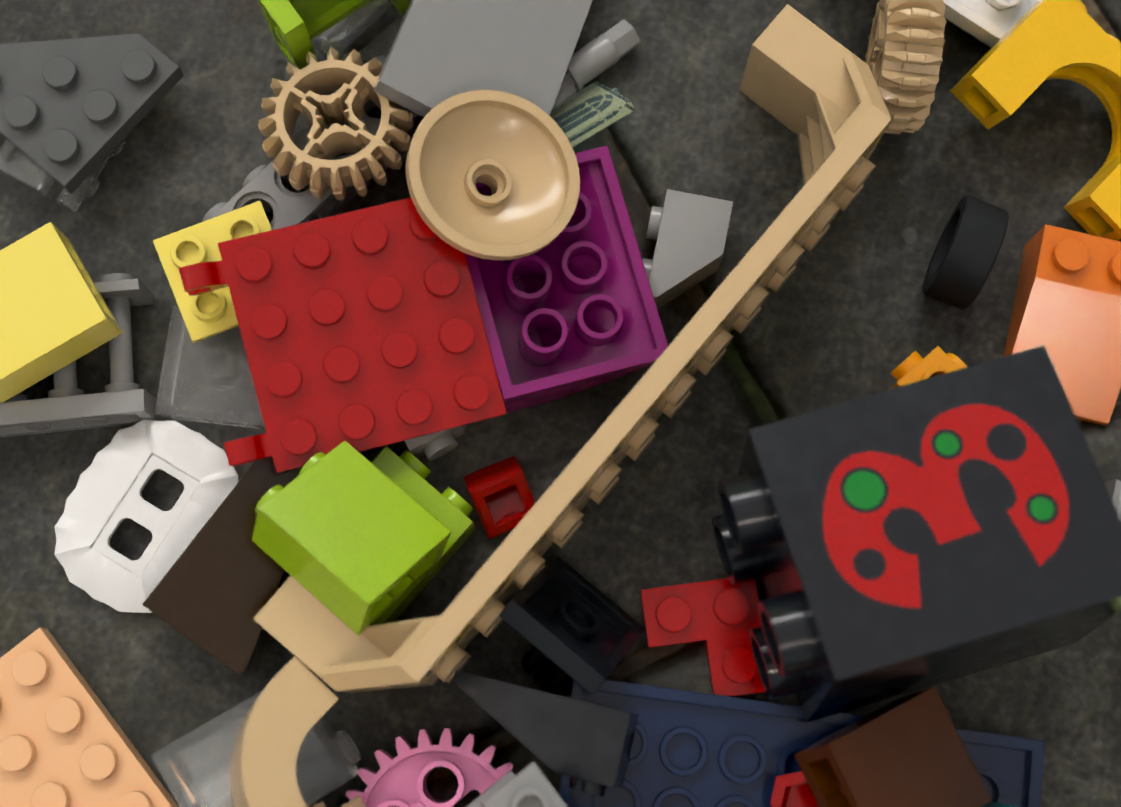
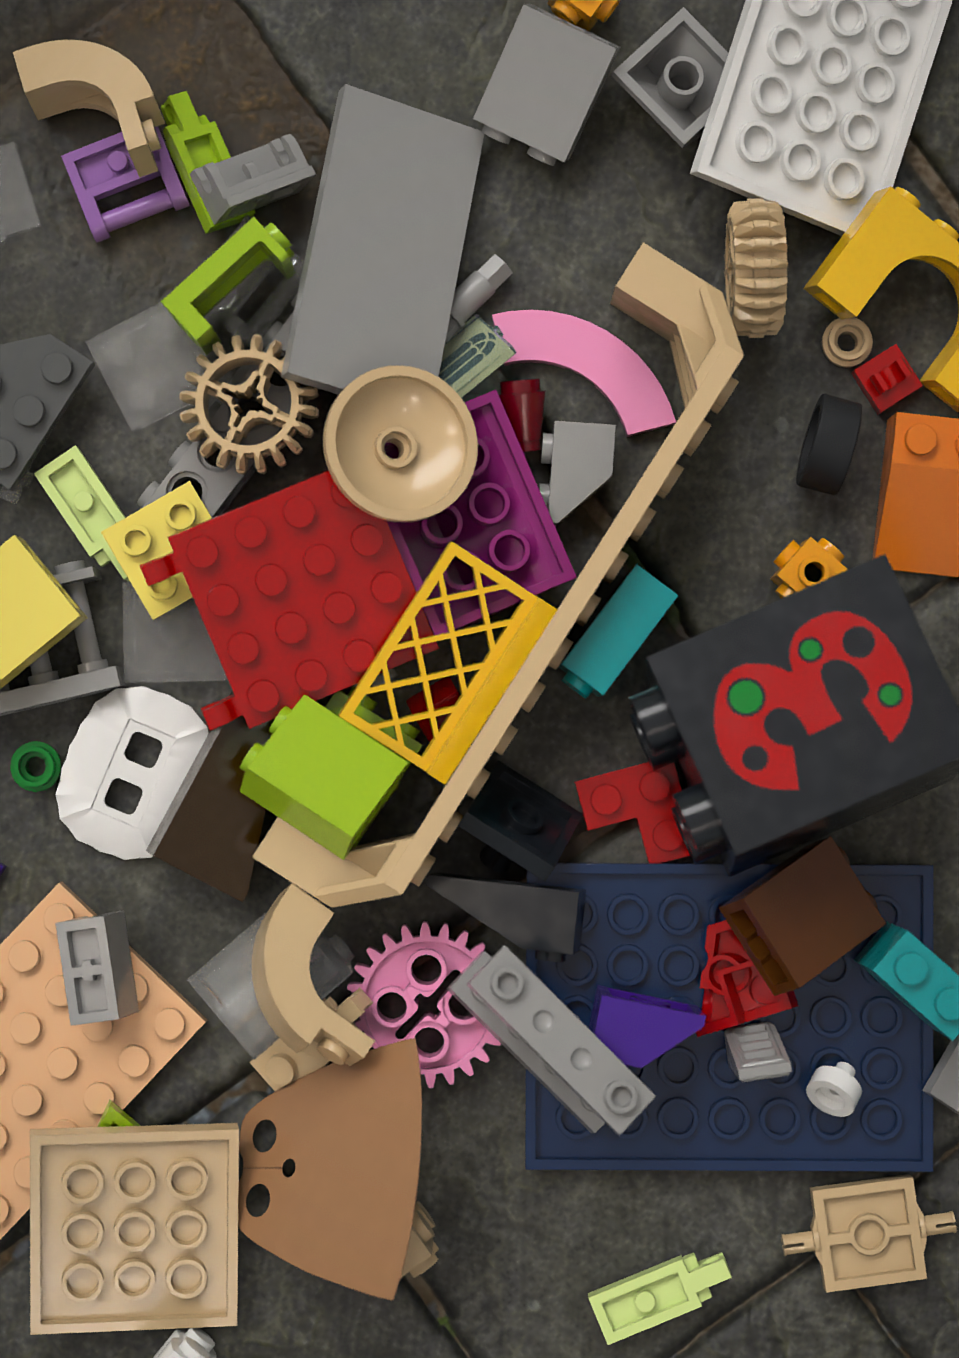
camera: 10 degrees left, 10 degrees up
(24, 492) = (20, 766): none -> green plate
(56, 730) = (97, 968): none -> light grey hinge
(142, 213) = (82, 503): none -> yellowish green hinge
(229, 86) = (146, 365): none -> clear plate
(550, 459) = (485, 687): none -> yellow fence
(637, 178) = (525, 410): none -> dark red cone
(708, 423) = (616, 633): none -> teal brick
(715, 134) = (595, 355): none -> bright pink tile
(996, 143) = (858, 331): none -> tan plate
(1030, 200) = (886, 379): none -> red tile

